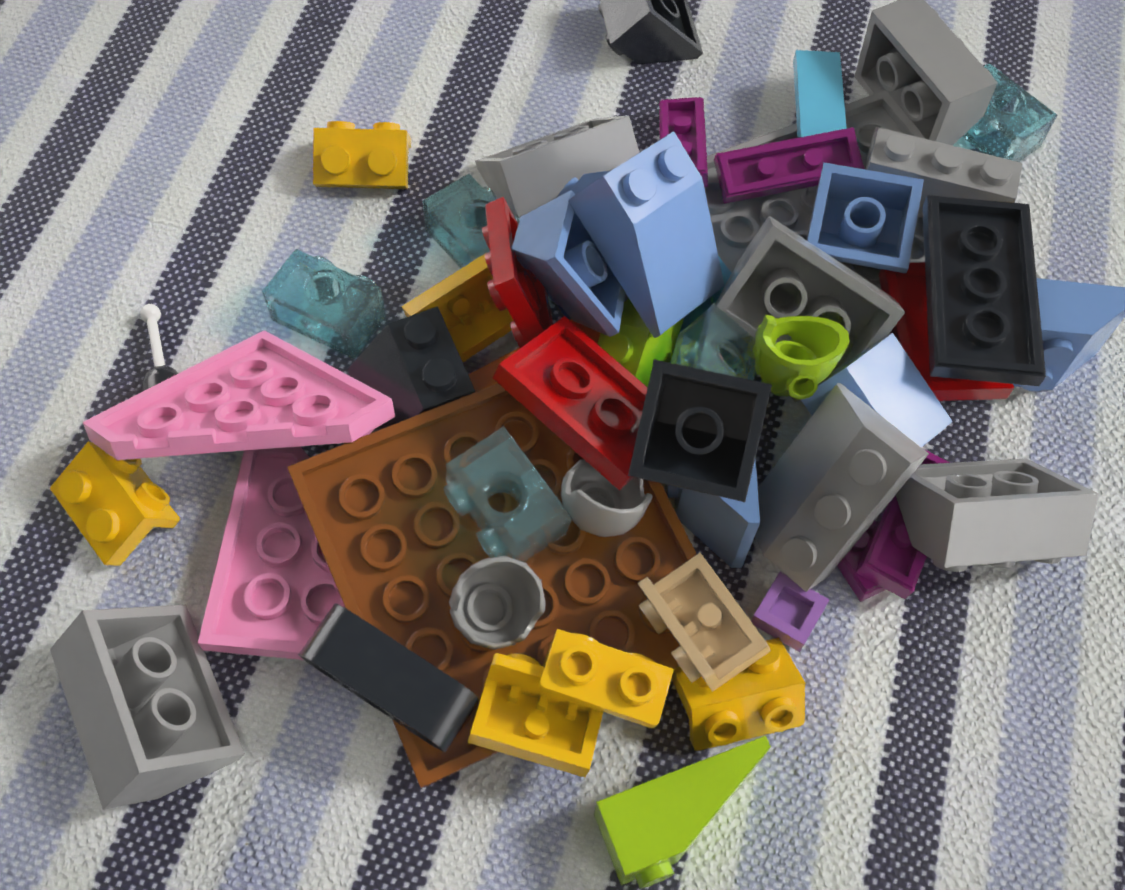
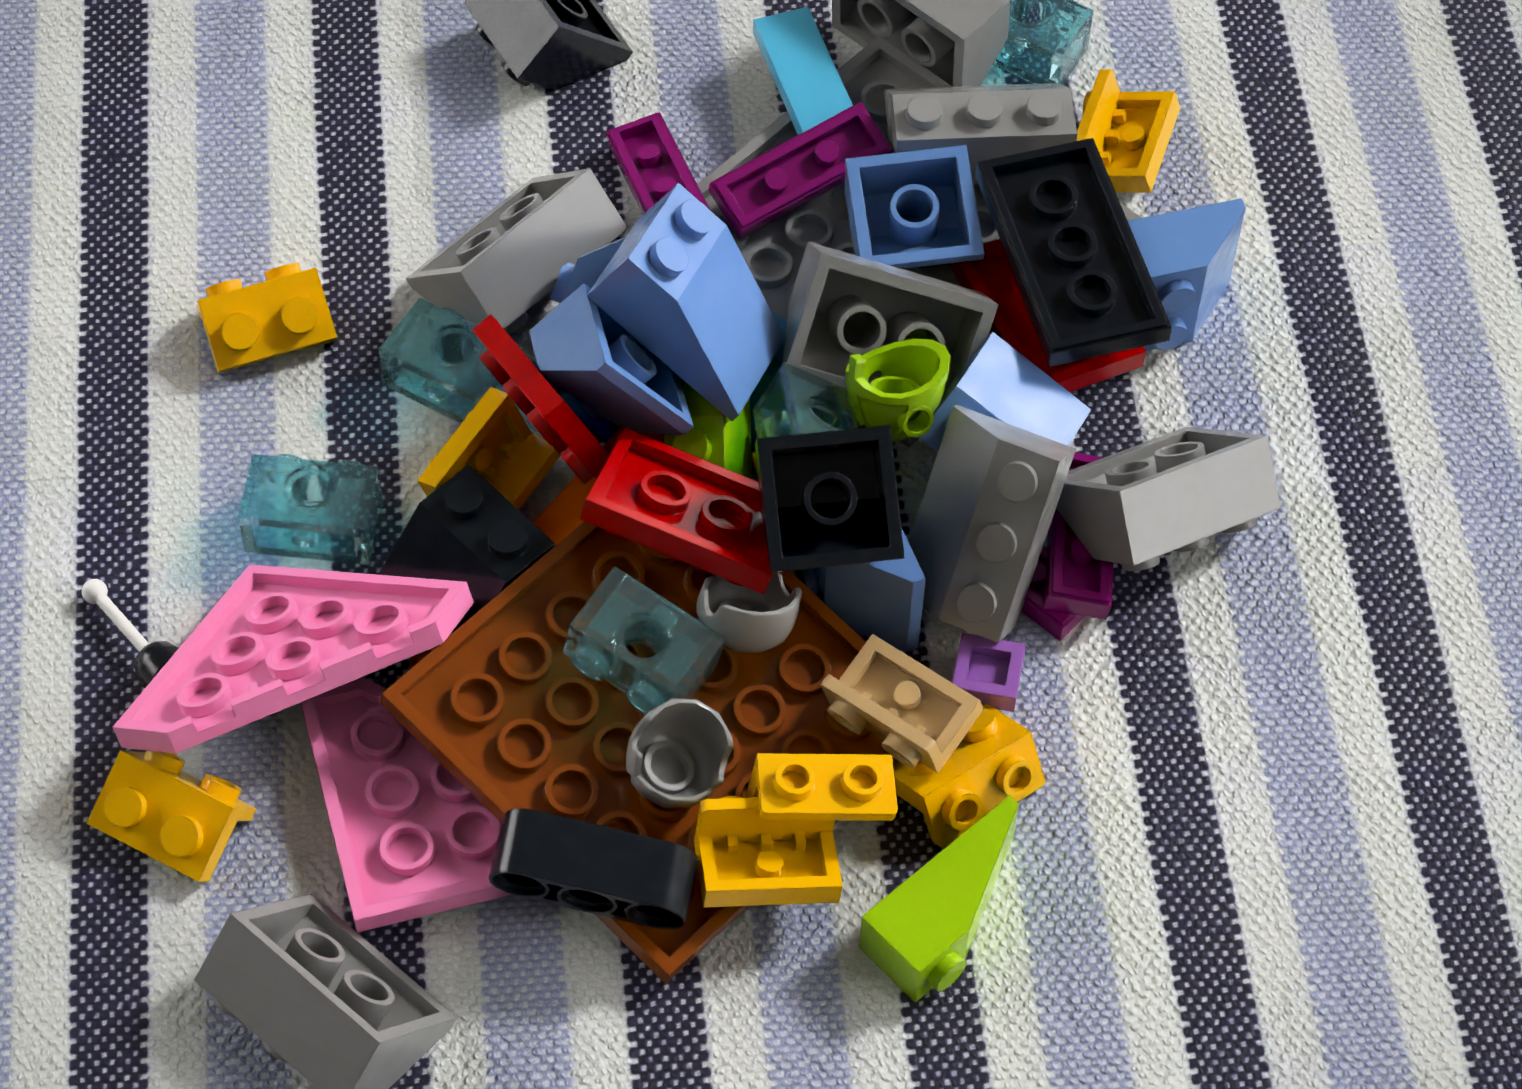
camera: 20 degrees left, 5 degrees down
(1057, 212) = (1128, 131): none -> yellow bracket

